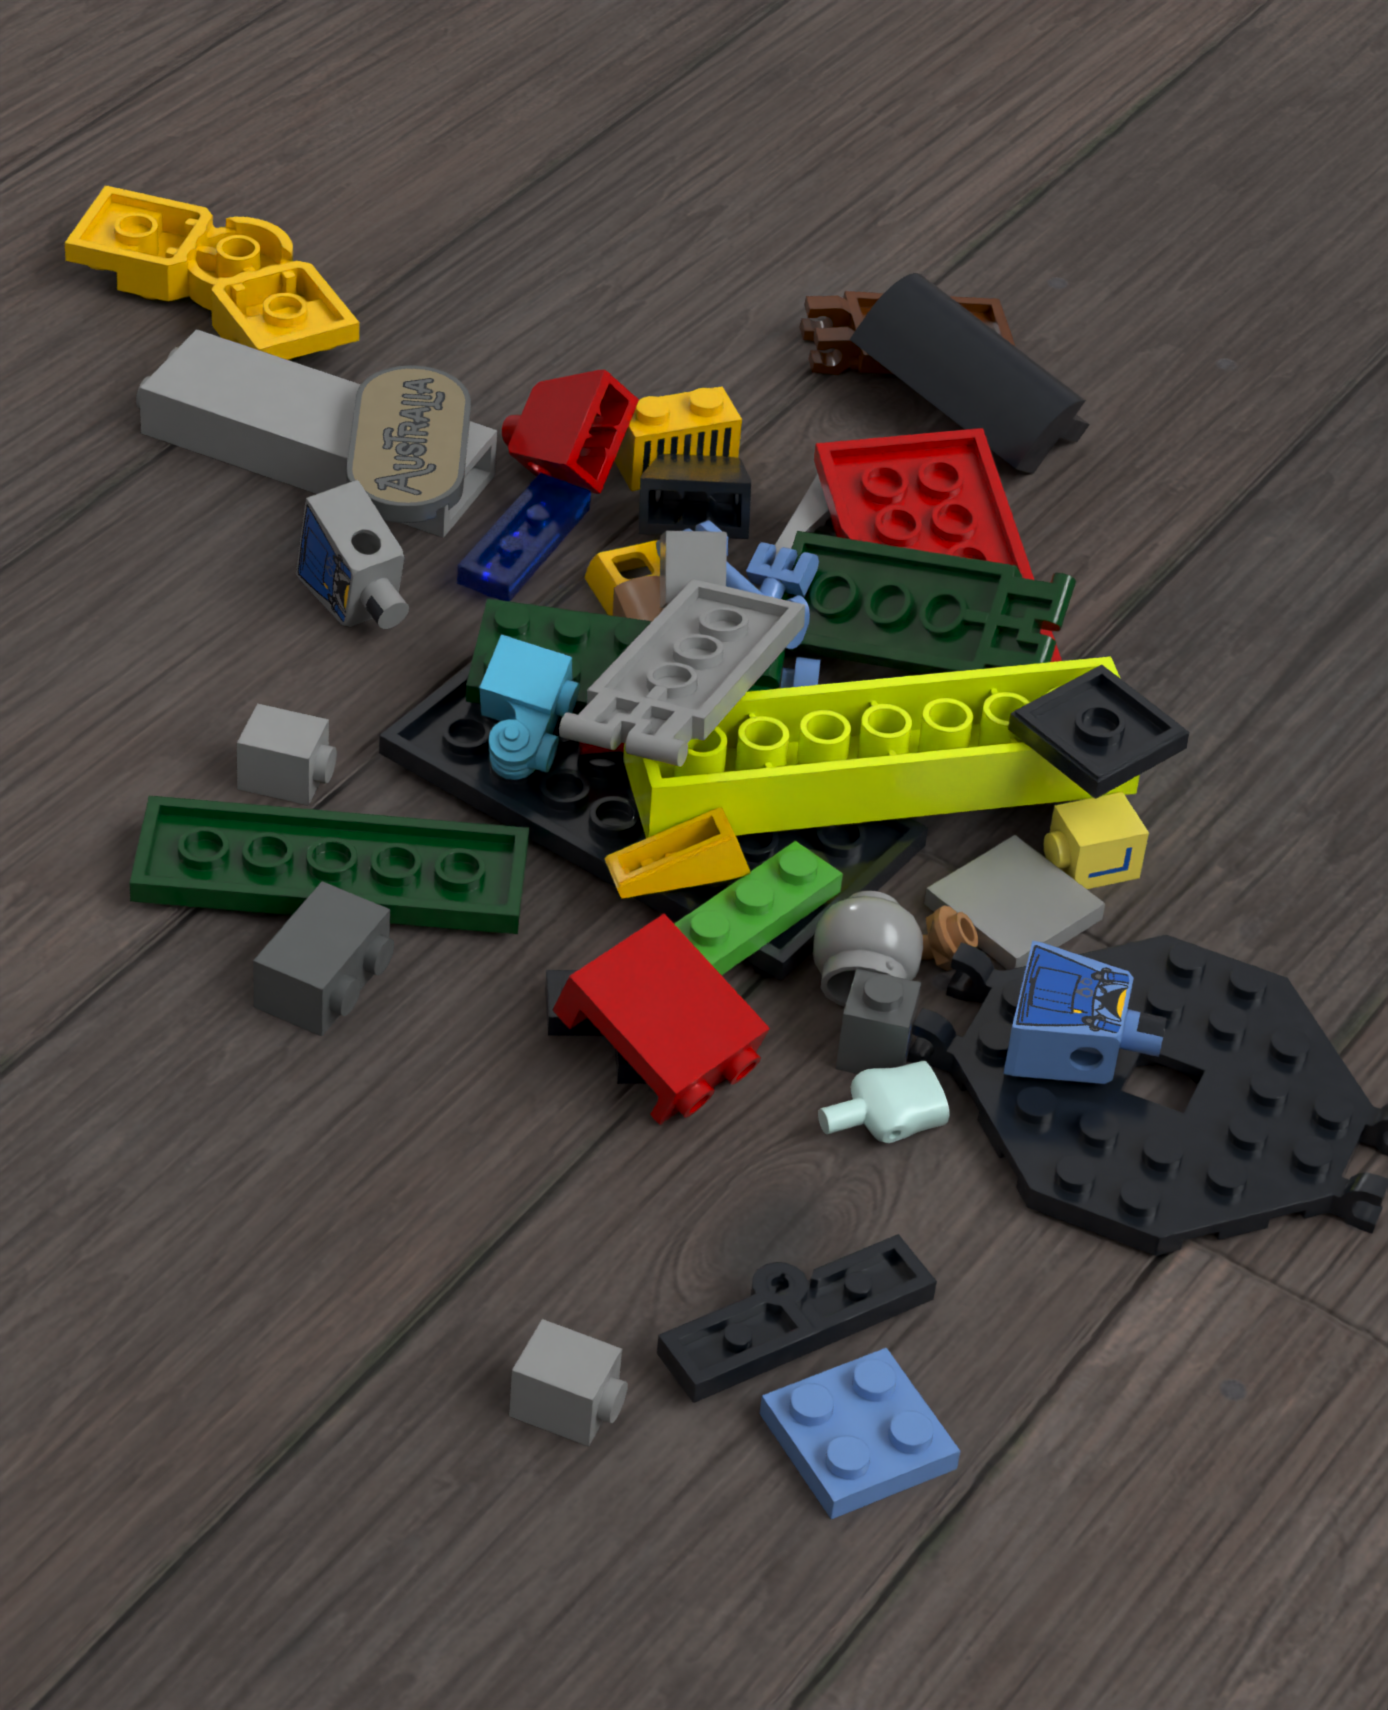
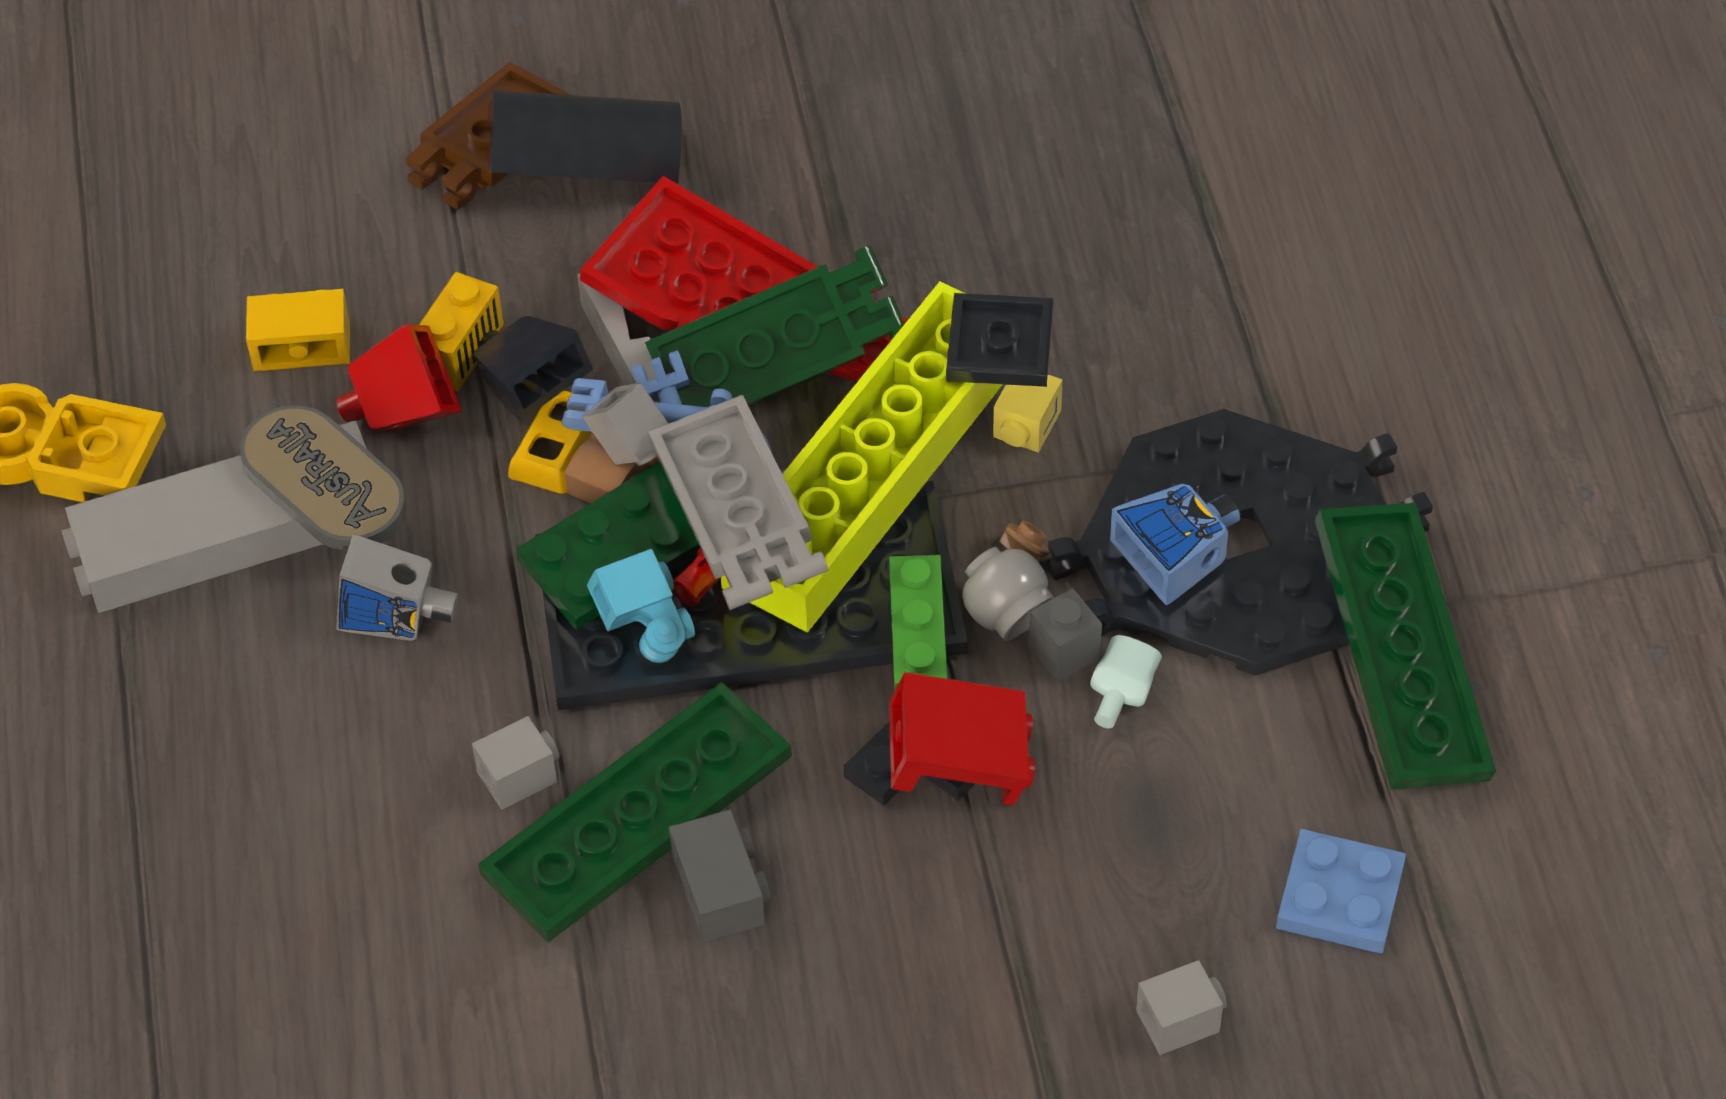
camera: 40 degrees left, 10 degrees up
(523, 537) = (451, 482): clear blue plate -> none
(549, 343) = (298, 330): none -> yellow brick
(679, 857) = (837, 607): yellow slope -> none
(794, 1316) = (1234, 854): black hinge -> none
(1016, 899) = (1027, 485): light grey tile -> none
(1187, 1282) = (1404, 646): none -> dark green plate

